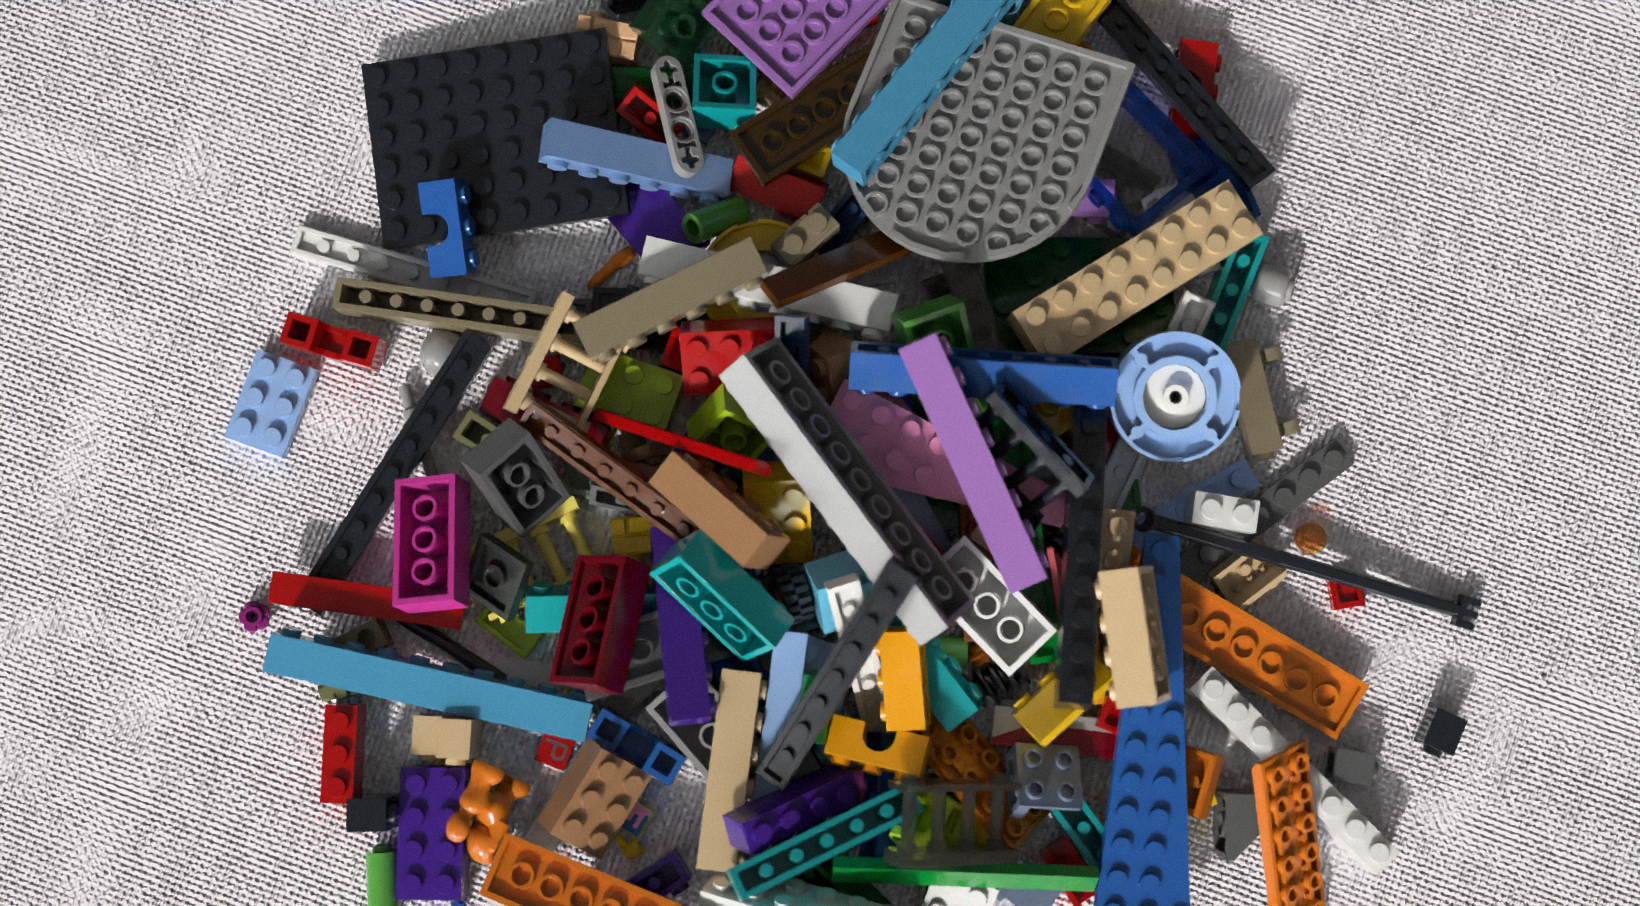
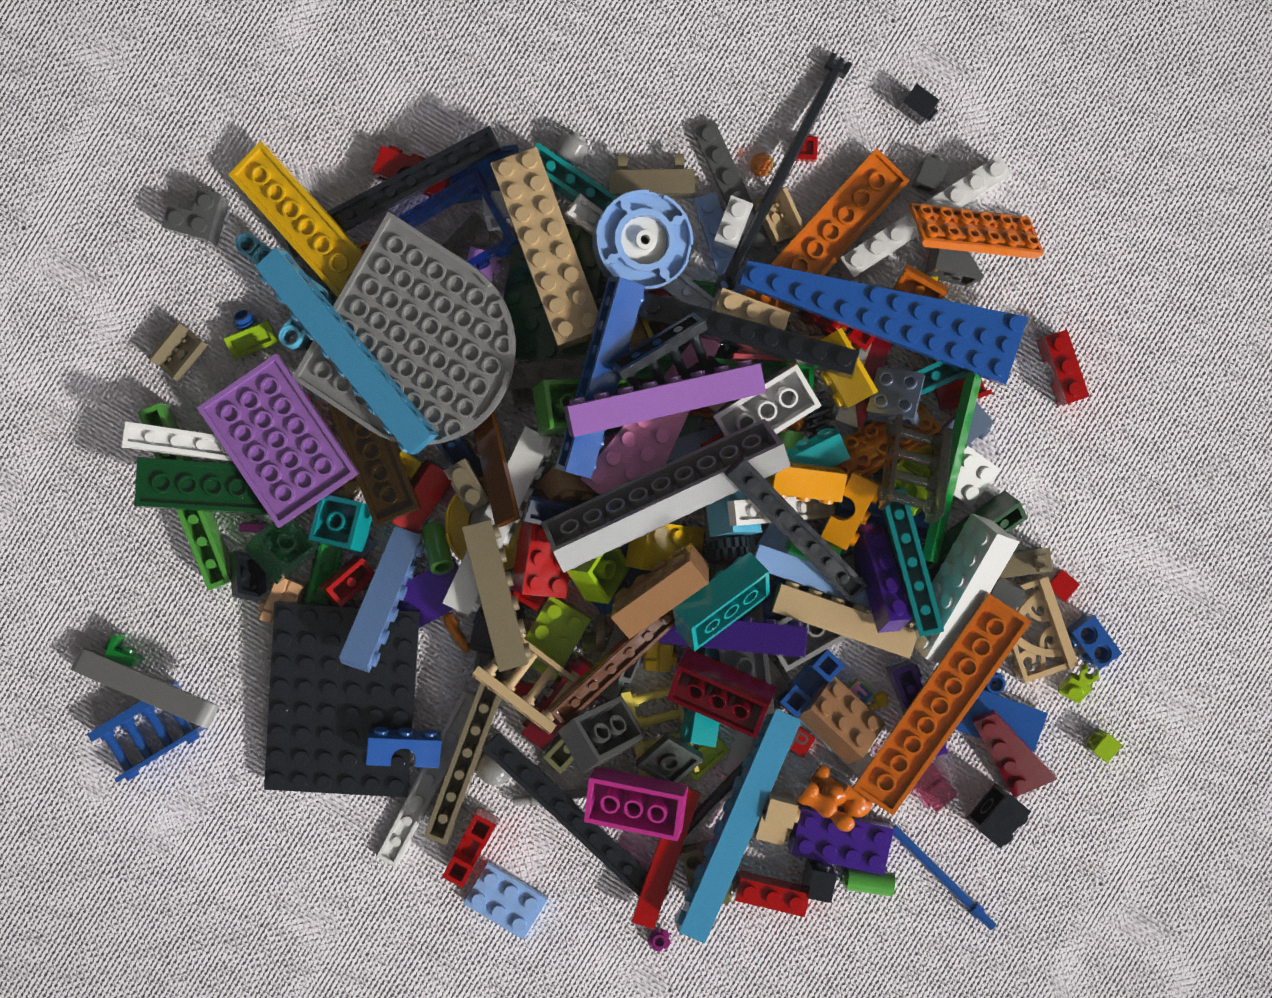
camera: 85 degrees left, 5 degrees up
(681, 116) = (356, 558): light grey beam -> none
(683, 442) = (604, 607): red tile -> none
(1133, 637) = (816, 310): tan brick -> none

